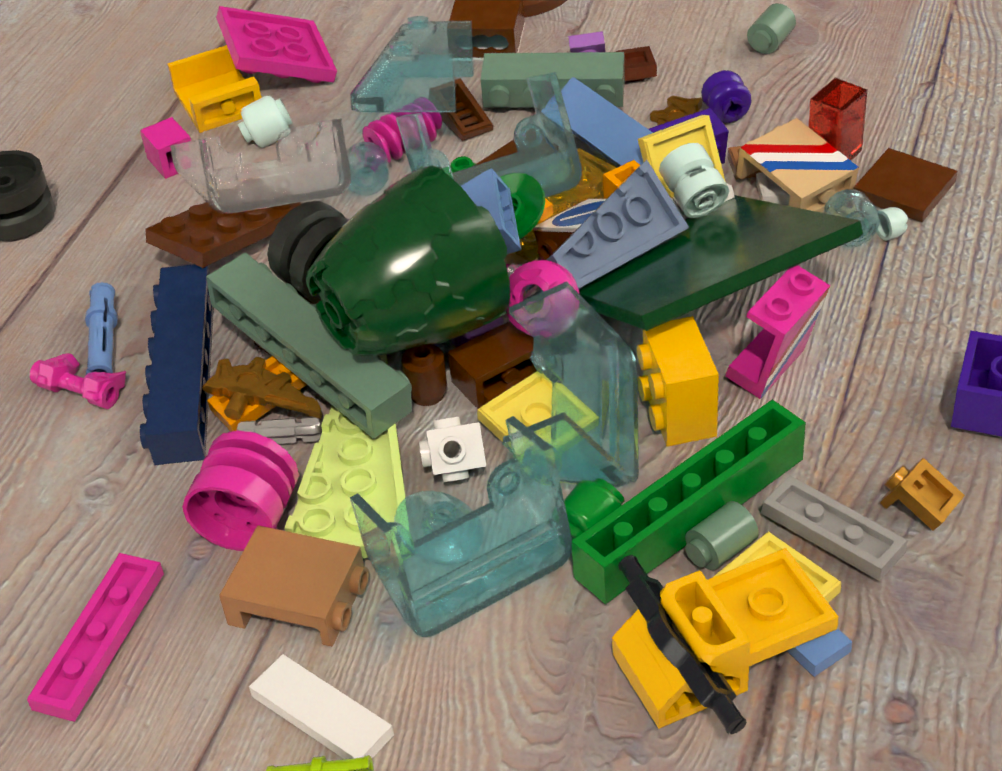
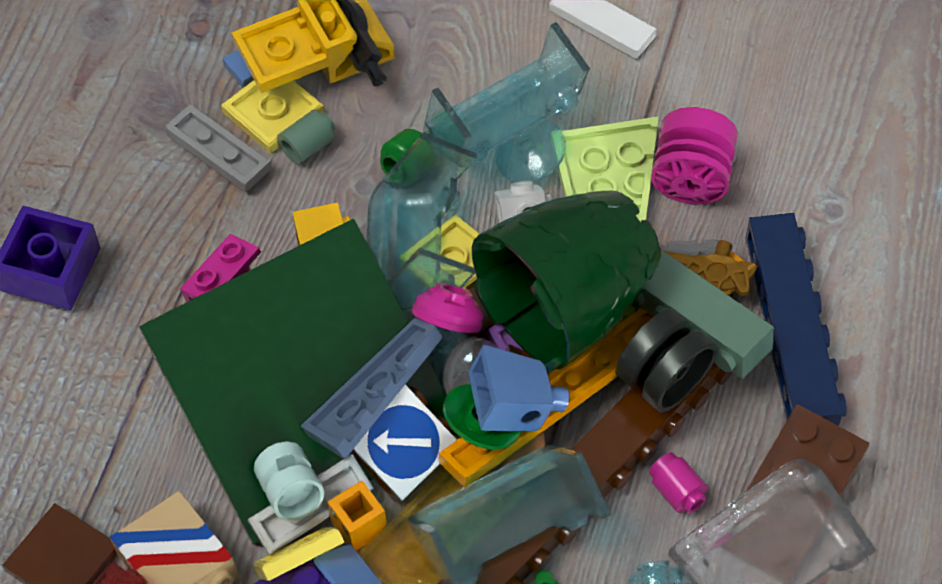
camera: 175 degrees right, 15 degrees up
(58, 374) = (912, 313): dark pink piece -> none
(95, 637) = (781, 68): dark pink plate -> none
(101, 320) = (890, 380): medium blue pin -> none
(295, 582) = (635, 91): medium nougat panel -> none
(660, 516) = (324, 155): green brick -> none
(855, 205) = (131, 488): clear light blue head -> none
(892, 223) = (89, 489): light aqua hinge -> none
(923, 492) = (146, 173): pearl gold bracket -> none

